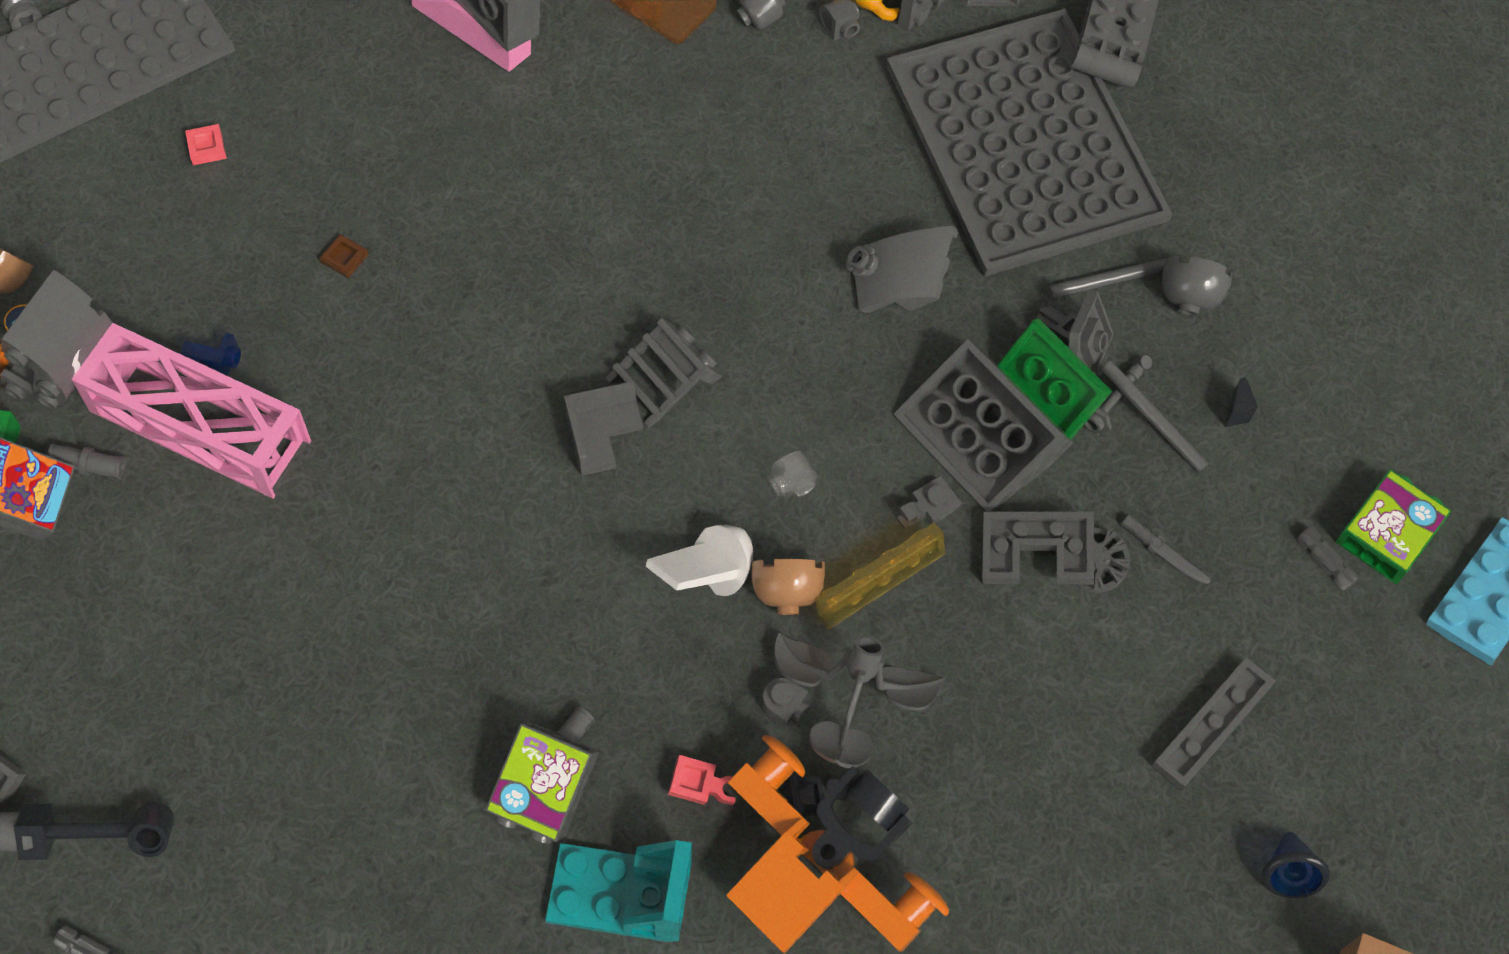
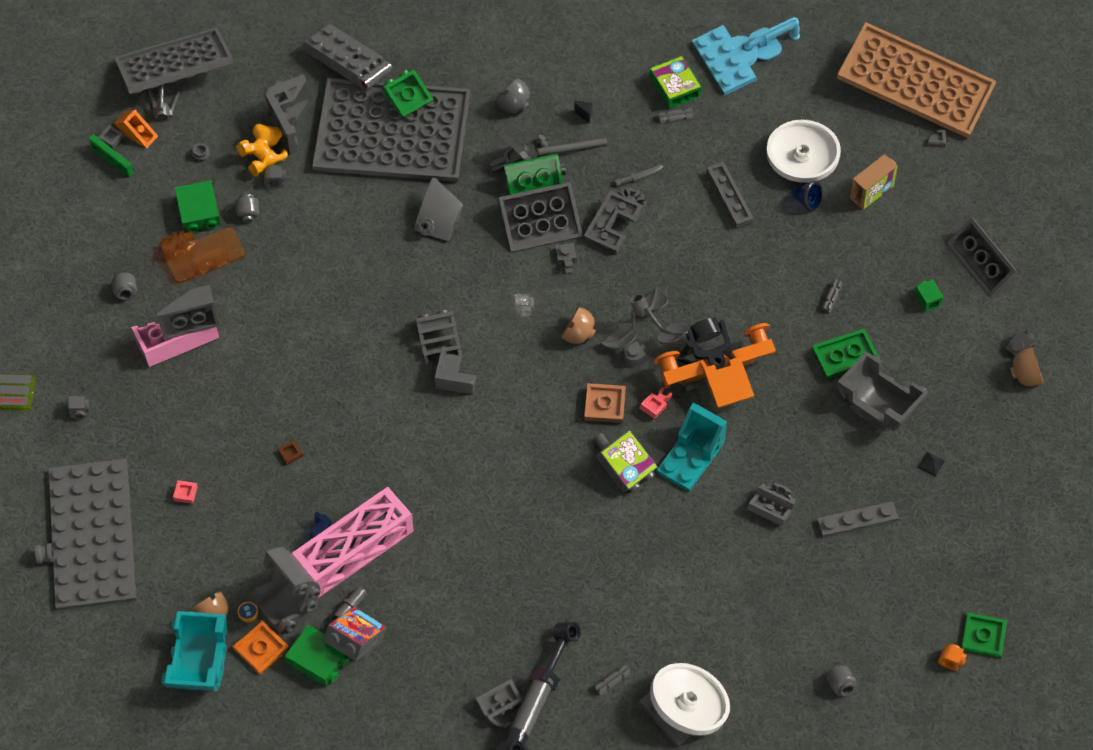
camera: 60 degrees left, 5 degrees down
(659, 695) = (605, 403): none -> nougat plate
(717, 559) = (553, 350): white piece -> none
(880, 575) = (591, 284): clear yellow plate -> none
(1097, 122) = (407, 93): none -> green plate
(1106, 278) = (487, 131): dark grey bar -> none
(1384, 815) = (803, 151): none -> white dish

